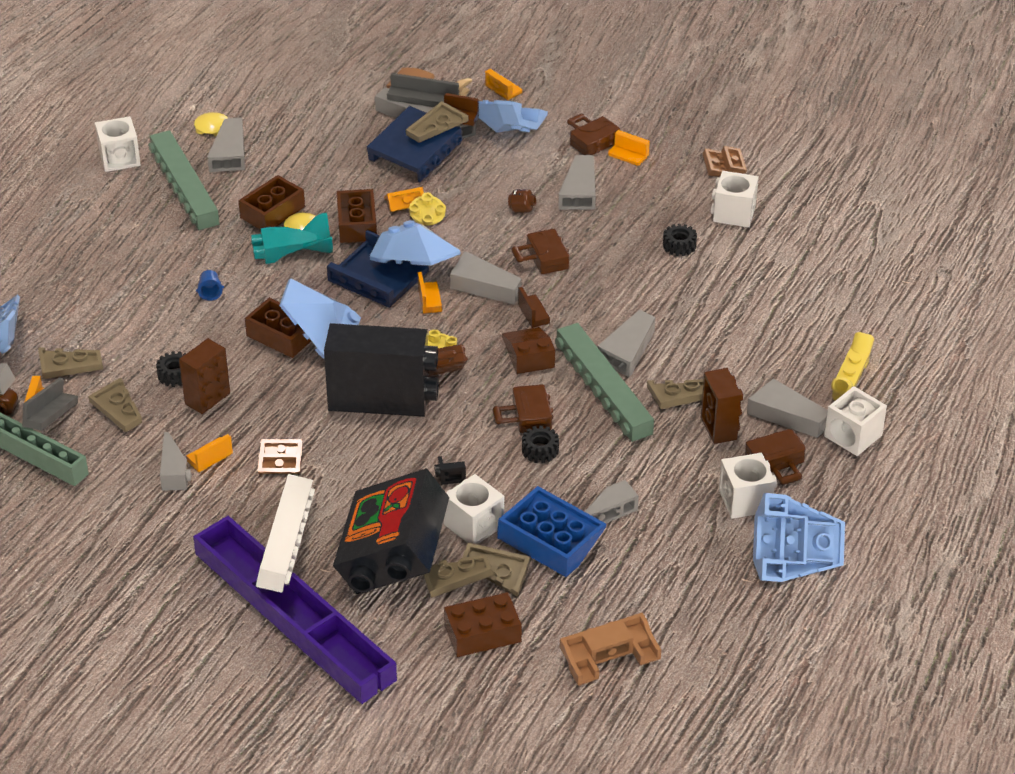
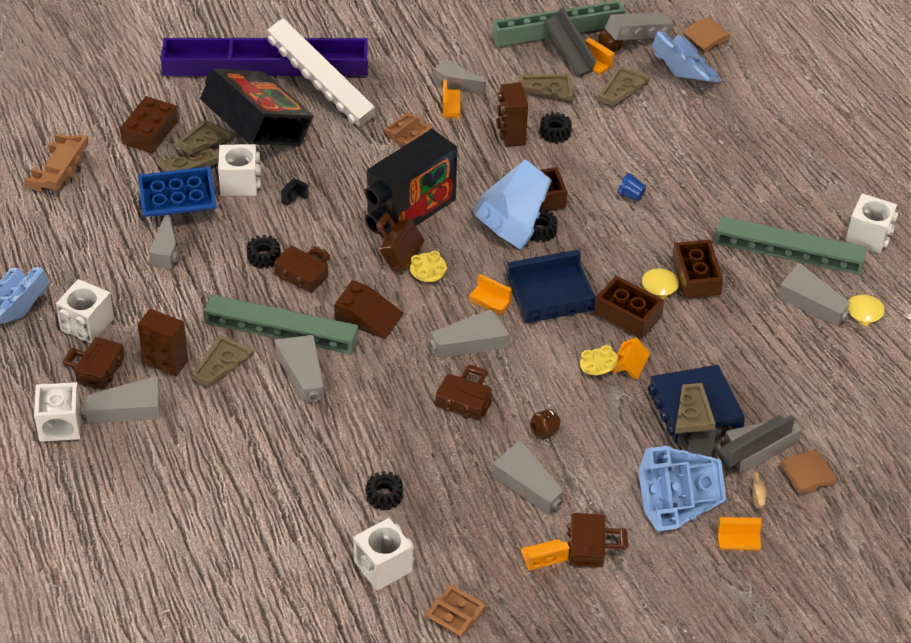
camera: 130 degrees right, 5 degrees up
(279, 241) = (640, 253): teal hips -> none
(412, 243) = (542, 308): light blue wedge -> none
(465, 104) = (705, 444): reddish brown panel -> none
(532, 309) = (407, 341): reddish brown panel -> none
(853, 365) = (113, 469): light yellow plate -> none

